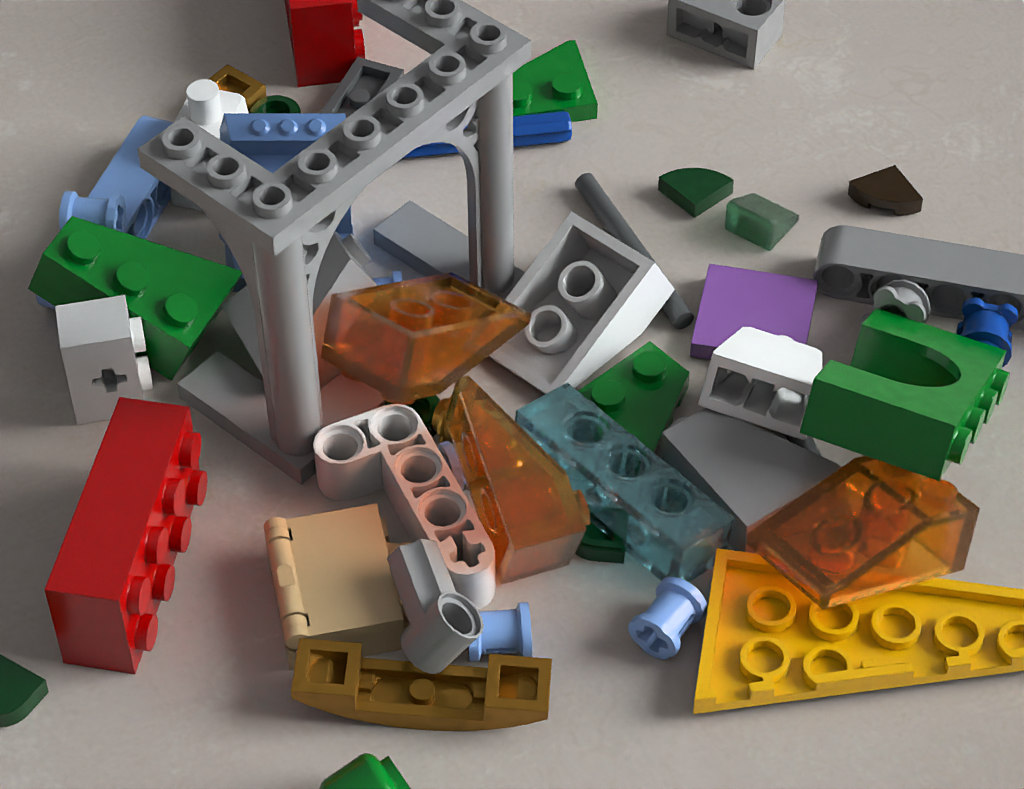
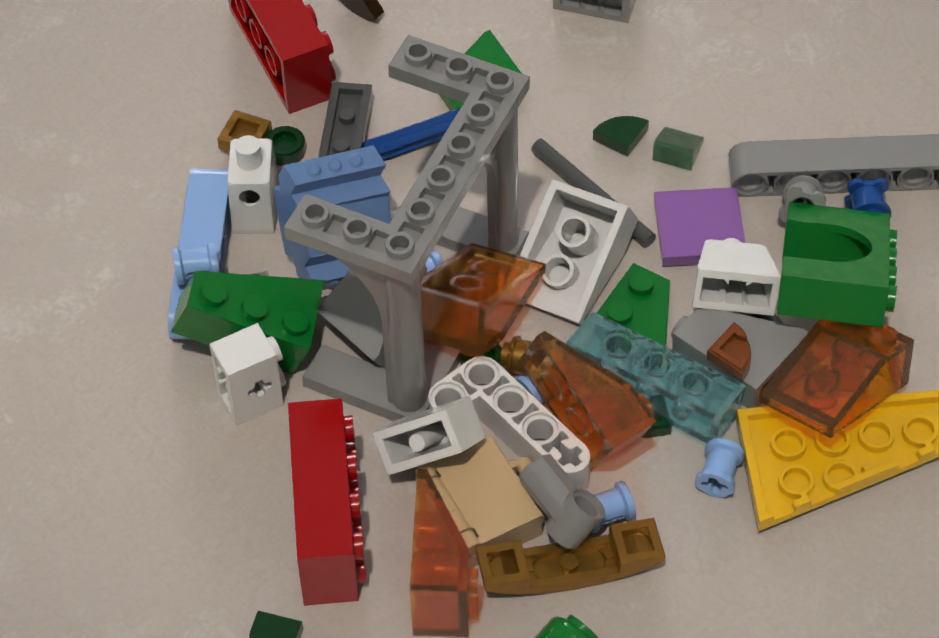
camera: 15 degrees left, 5 degrees up
(228, 657) = (441, 579): none -> clear orange slope
(292, 482) = (429, 435): none -> white brick
(729, 471) = (732, 352): none -> dark orange tile
(887, 190) = (760, 103): dark brown tile -> none

